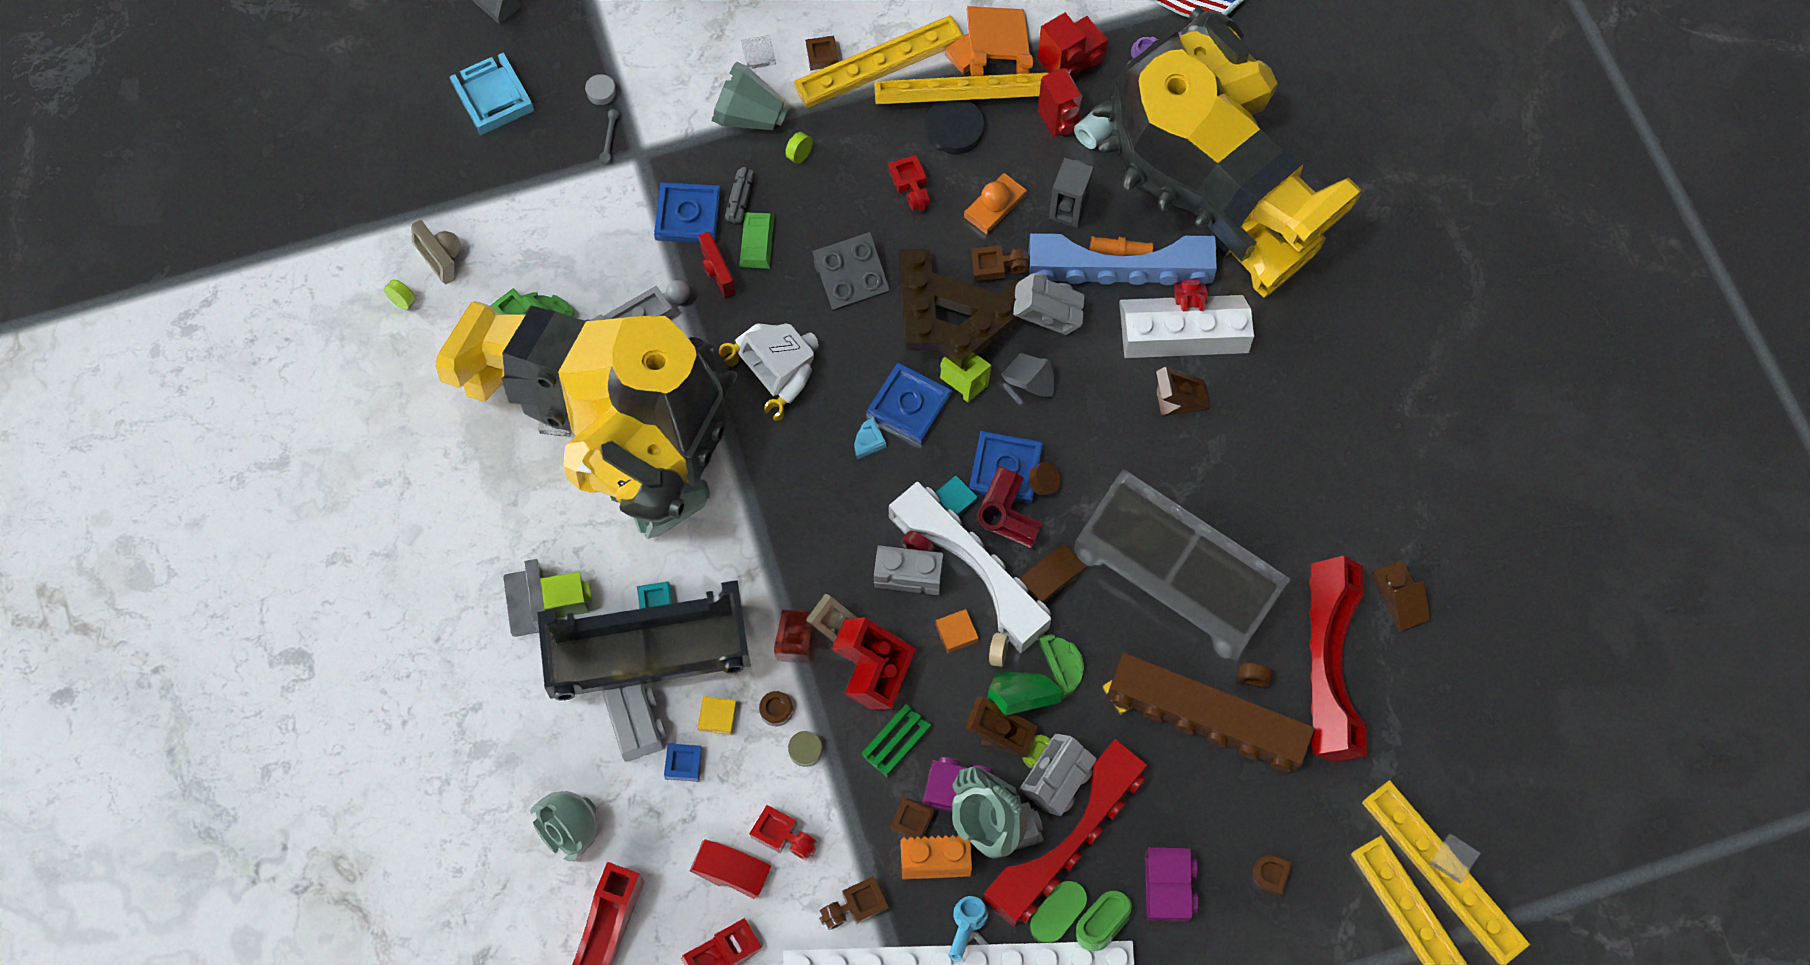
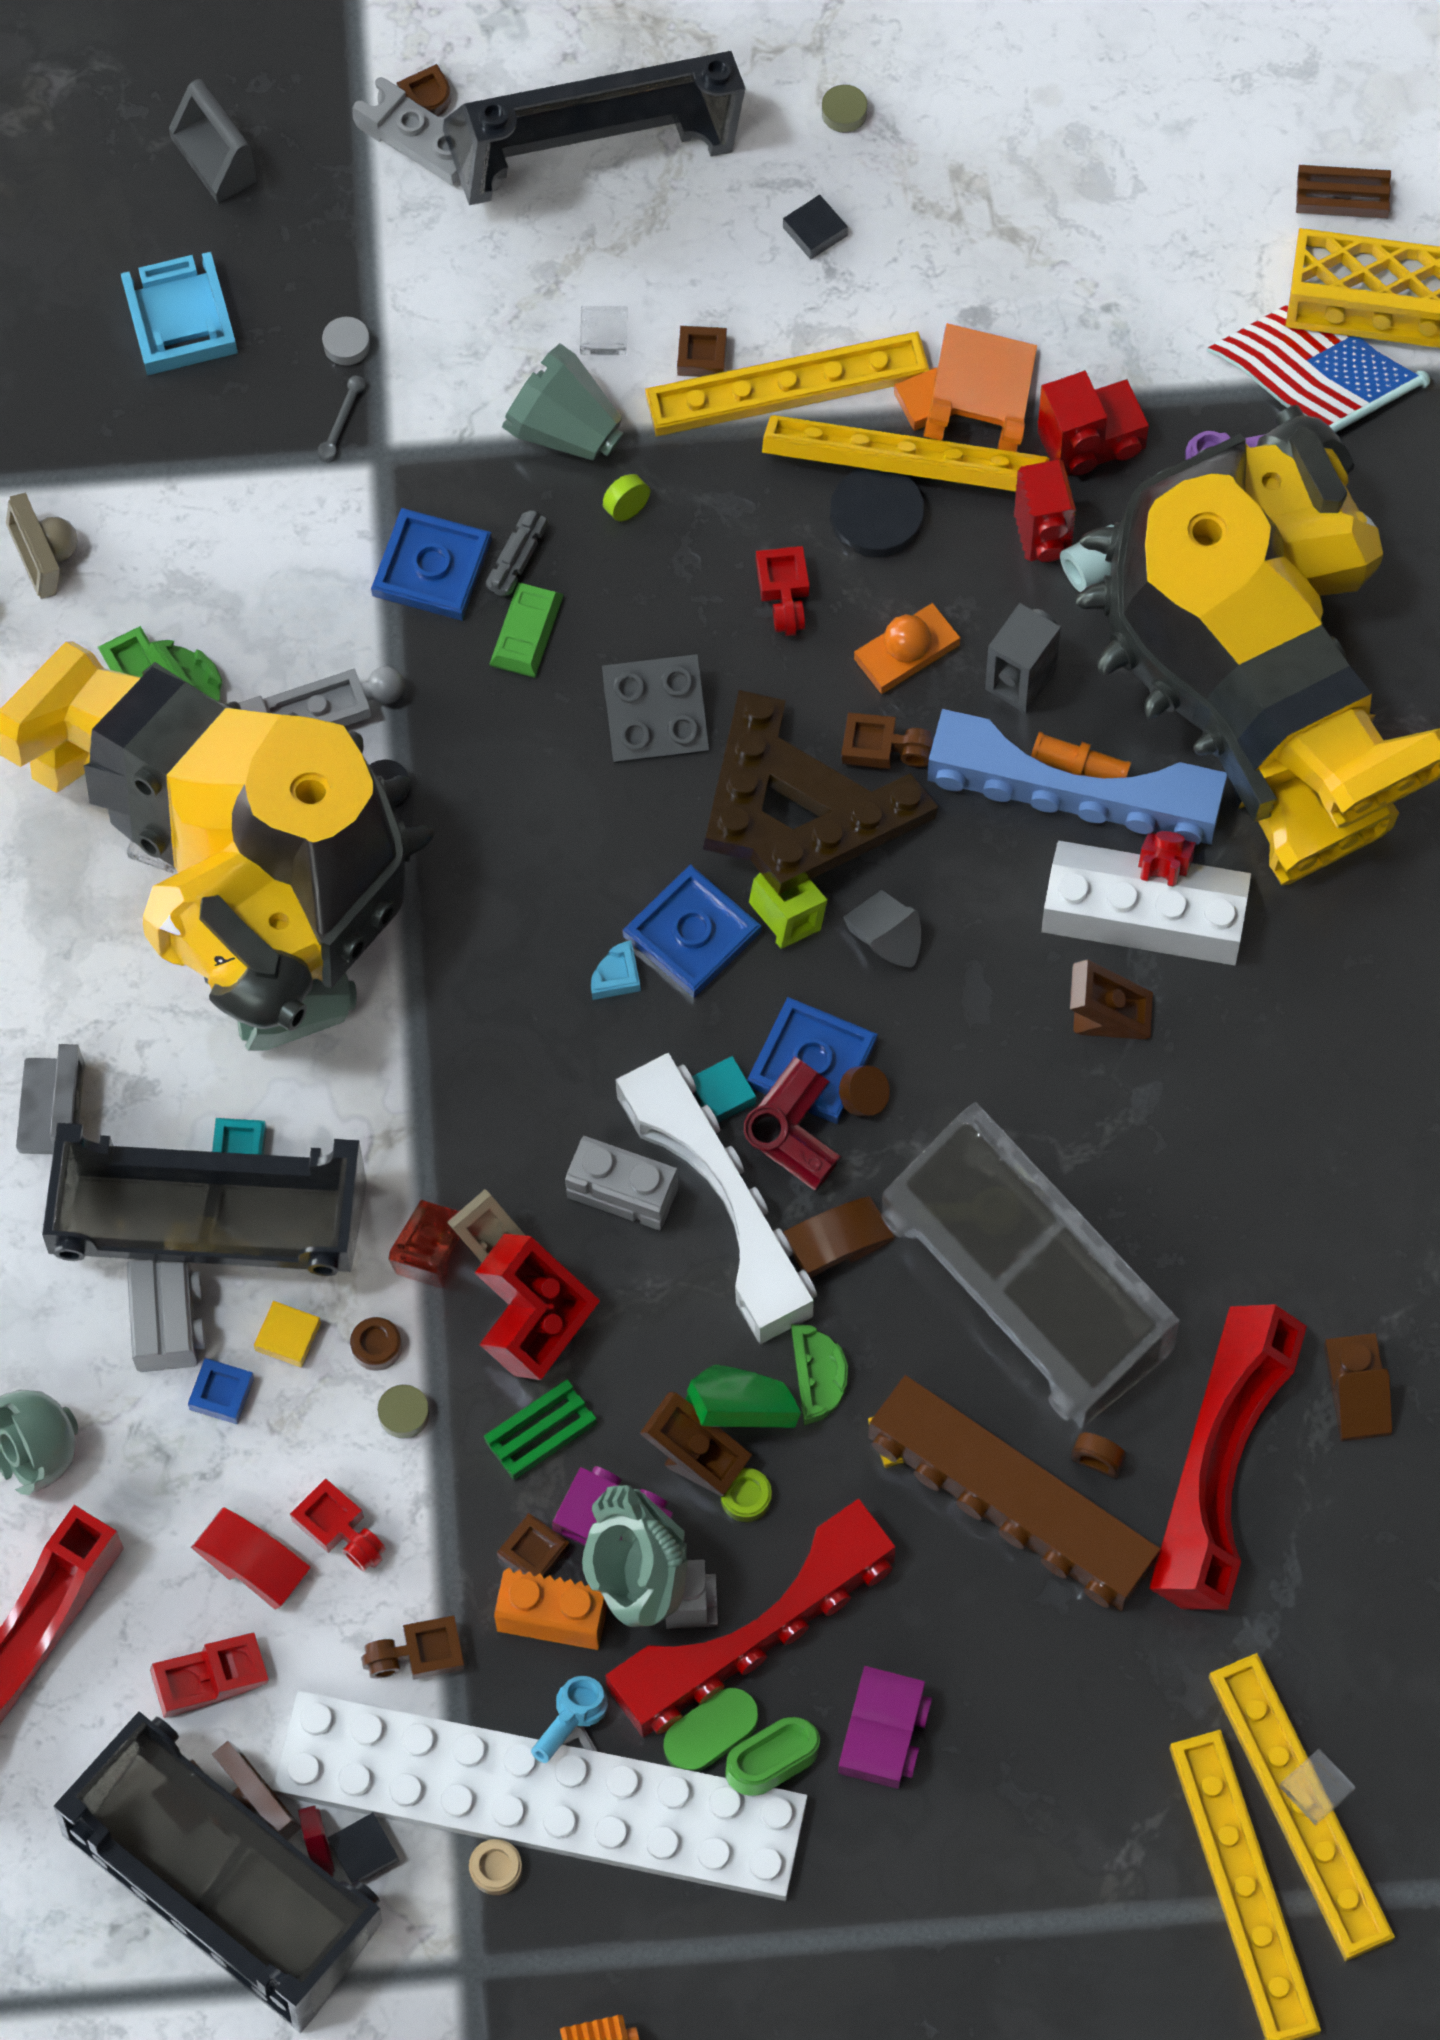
camera: 15 degrees right, 0 degrees up
(566, 594) = (109, 1107): lime brick -> none
(715, 265) = (451, 656): red plate -> none
(777, 358) = (508, 821): white torso -> none
(916, 541) = (645, 1143): dark red tile -> none
(956, 631) = (672, 1289): orange tile -> none
(998, 649) = (726, 1330): tan tile -> none
(1049, 303) = (941, 824): light grey brick -> none
(1058, 775) = (762, 1532): light grey brick -> none
(1271, 874) = (1041, 1748): reddish brown tile -> none

